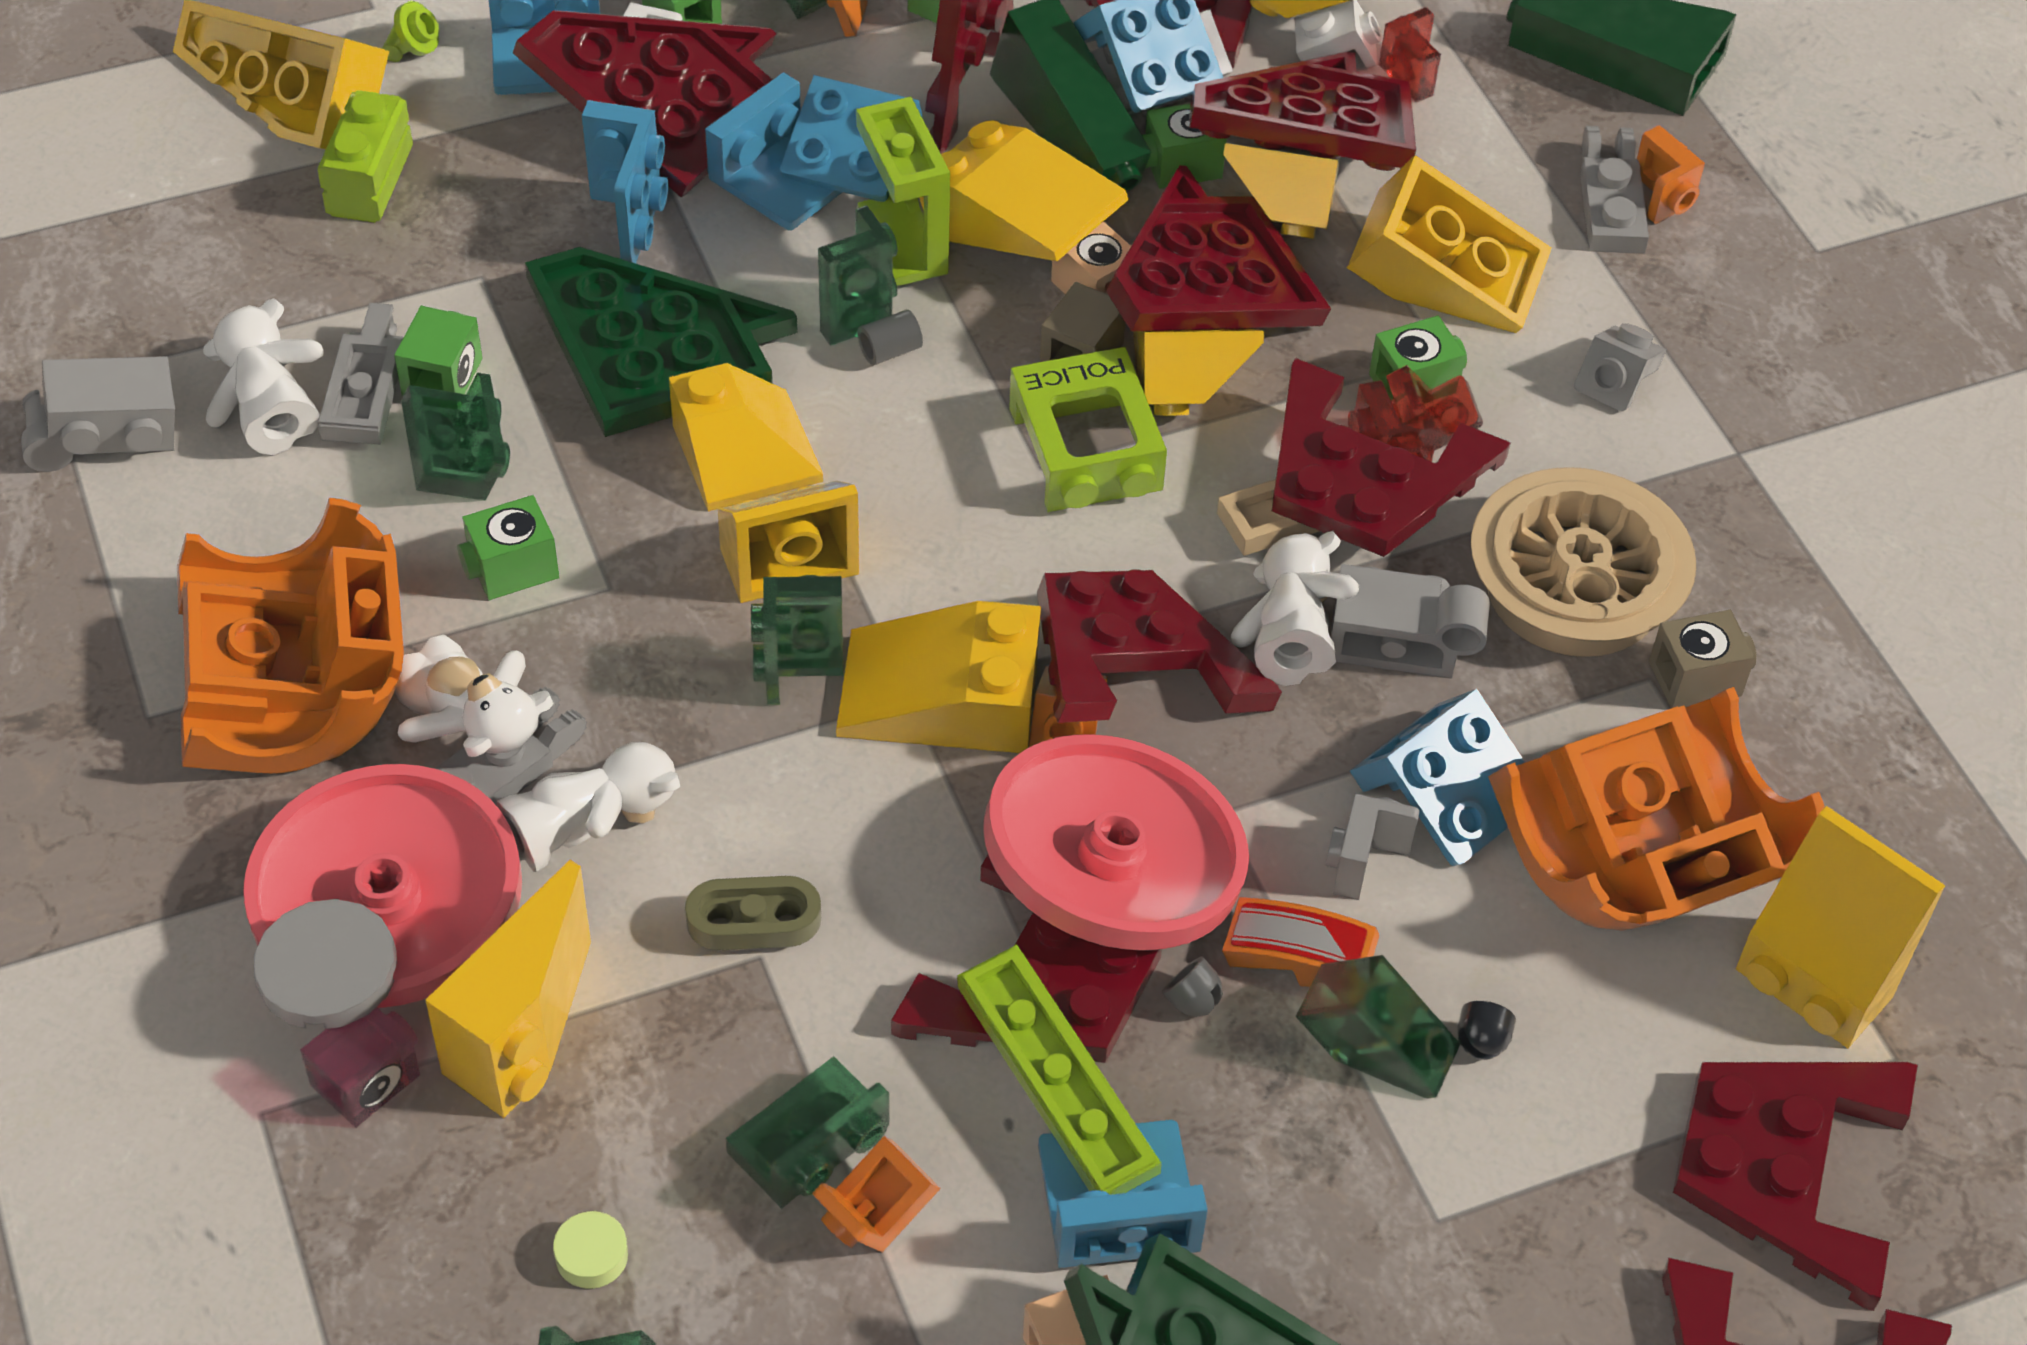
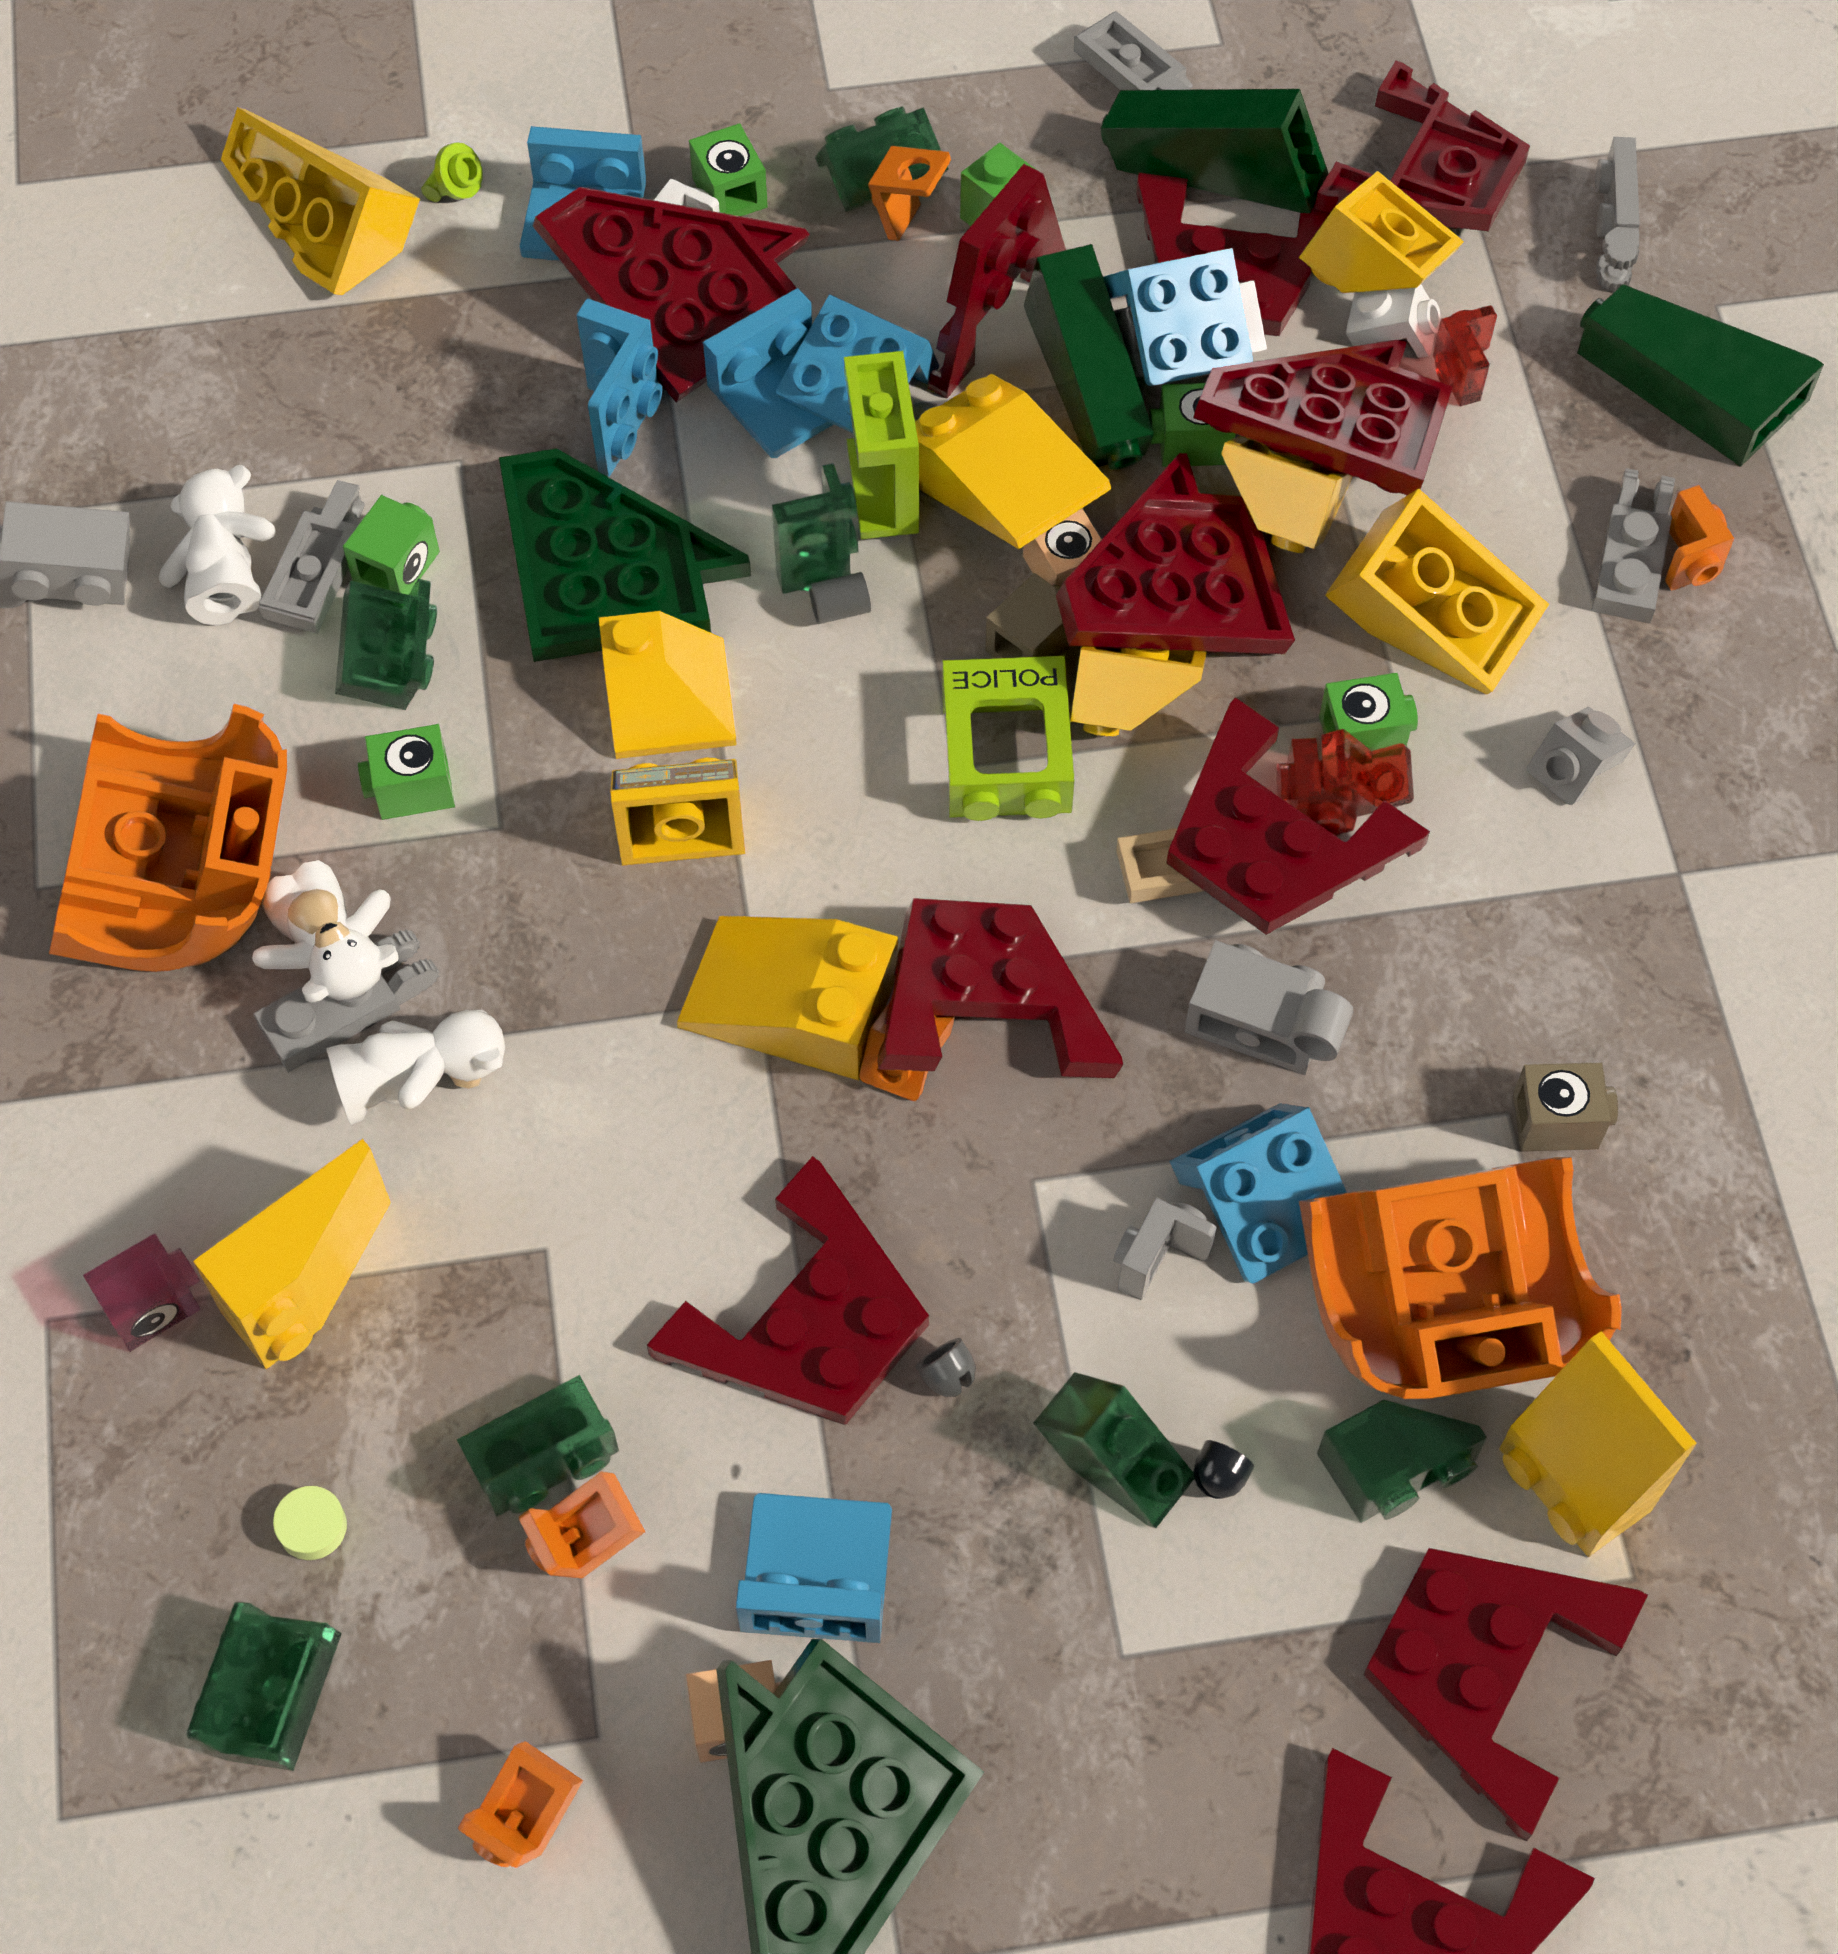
camera: 15 degrees right, 10 degrees up
(325, 963) = (122, 1194): light grey tile -> none
(365, 156) = (372, 312): lime brick -> none
(406, 846) = (200, 1114): coral dish -> none
(753, 912) = (548, 1203): olive plate -> none
(799, 630) = (653, 916): clear green bracket -> none
(1058, 1074) = (786, 1439): lime tile -> none
(1115, 842) = (907, 1203): coral dish -> none
(1291, 616) = (1152, 985): white piece -> none
(1294, 937) = (1063, 1336): slope -> none
(1555, 584) = (1496, 907): tan piece -> none
(1644, 983) = (1395, 1452): none -> clear green slope

